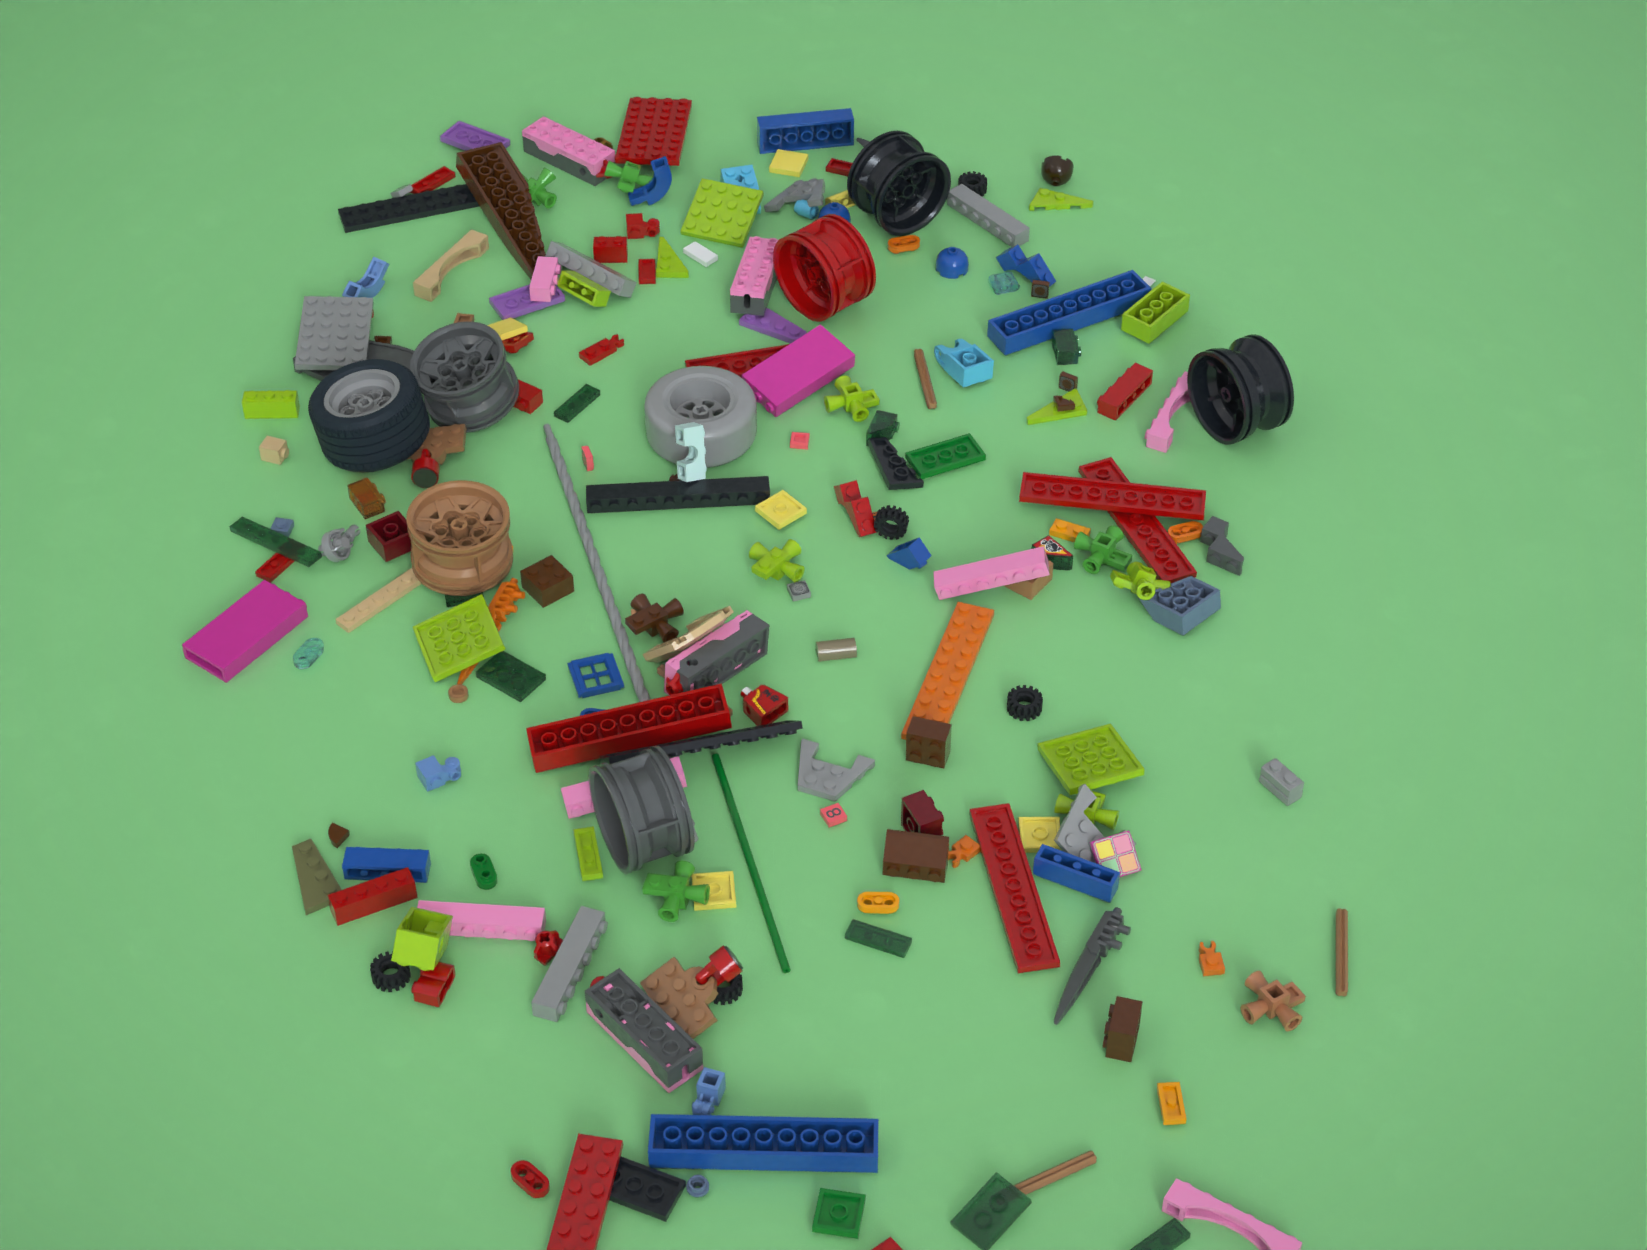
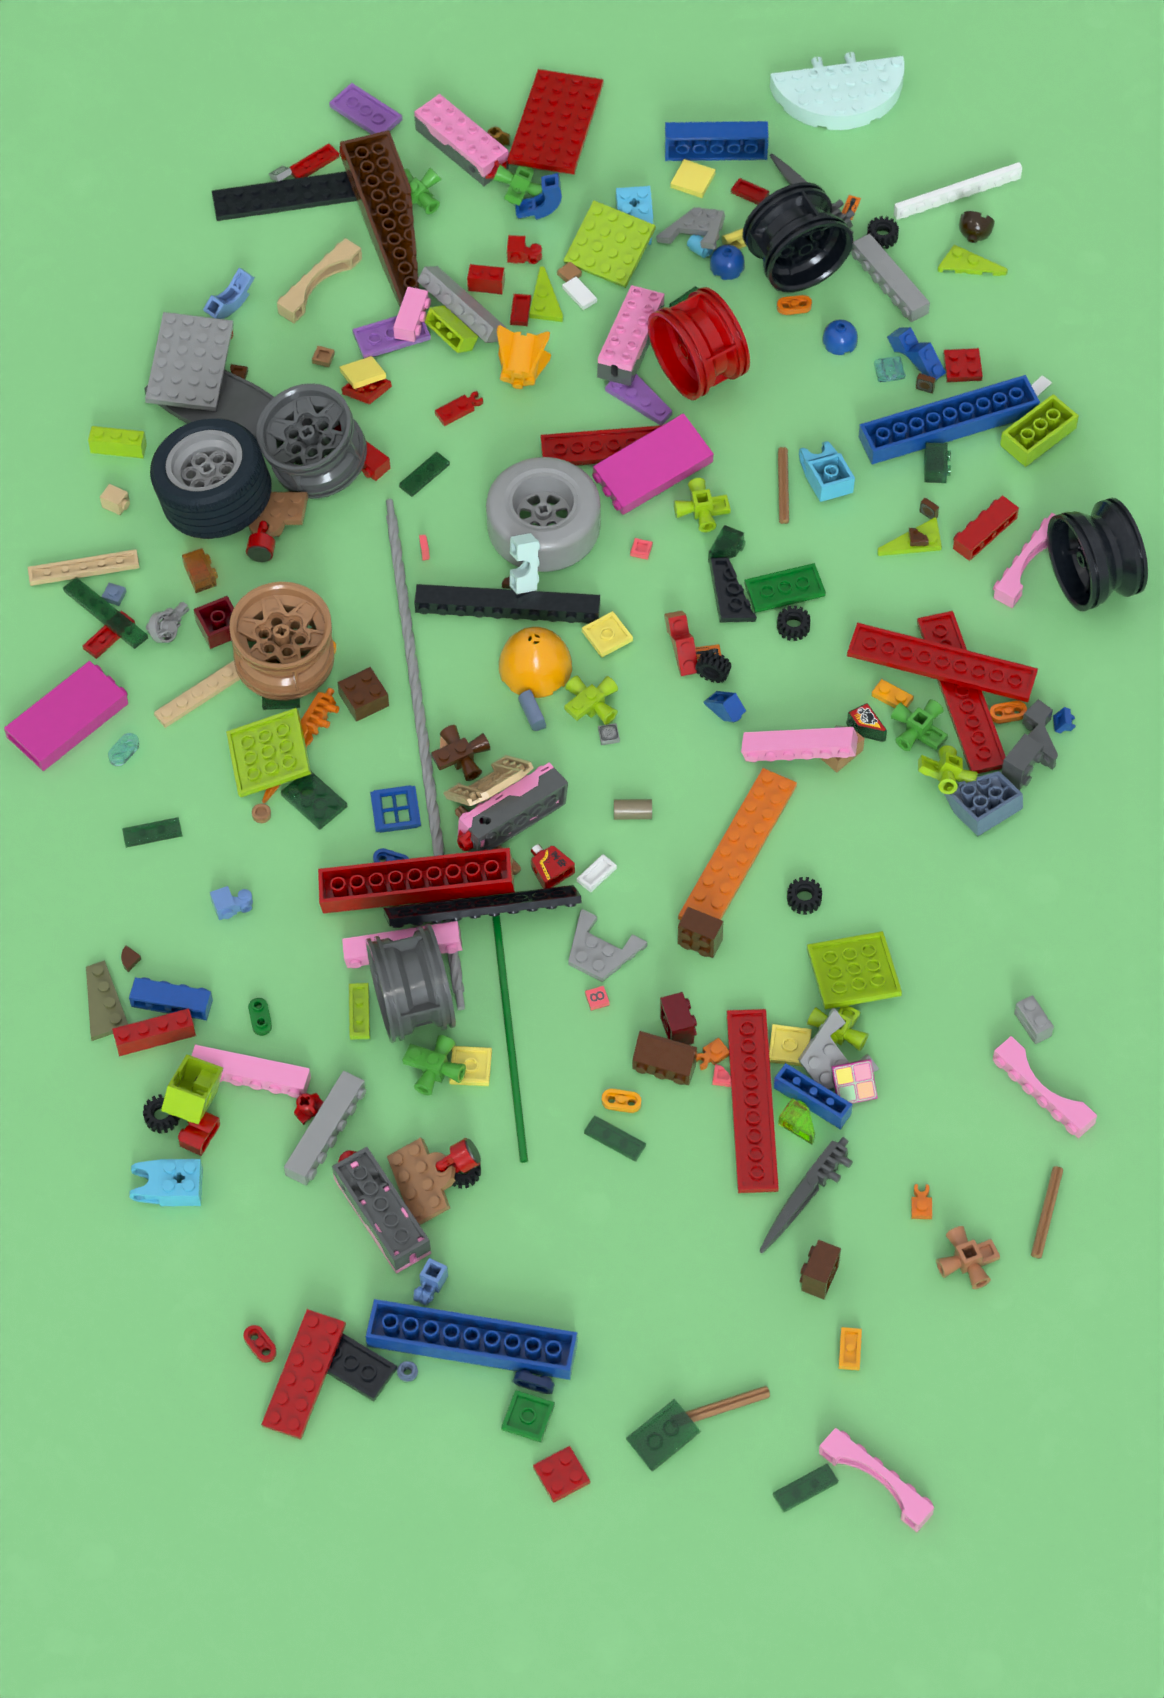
camera: 10 degrees right, 15 degrees up
(248, 507) = (83, 567): none -> tan plate
(346, 721) = (152, 832): none -> clear green tile
(407, 1033) = (165, 1181): none -> medium azure brick
(656, 299) = (521, 356): none -> light orange brick
(686, 239) = (569, 271): none -> medium nougat tile
(714, 537) = (535, 666): none -> light orange piece
(719, 577) = (532, 710): none -> sand blue brick
(810, 708) = (596, 873): none -> white tile
(839, 1178) = (532, 1382): none -> dark blue plate
(908, 91) = (840, 94): none -> light aqua brick
(968, 479) = (793, 614): none -> black tyre
(977, 871) = (721, 1077): none -> coral tile
(1033, 149) = (957, 191): none -> white plate
(1066, 898) = (798, 1120): none -> clear neon green slope
(1070, 274) = (962, 365): none -> red plate
(1212, 562) = (1020, 761): none -> dark grey brick
(1240, 533) = (1063, 720): none -> blue tile
(1340, 859) = (1072, 1114): none -> bright pink arch

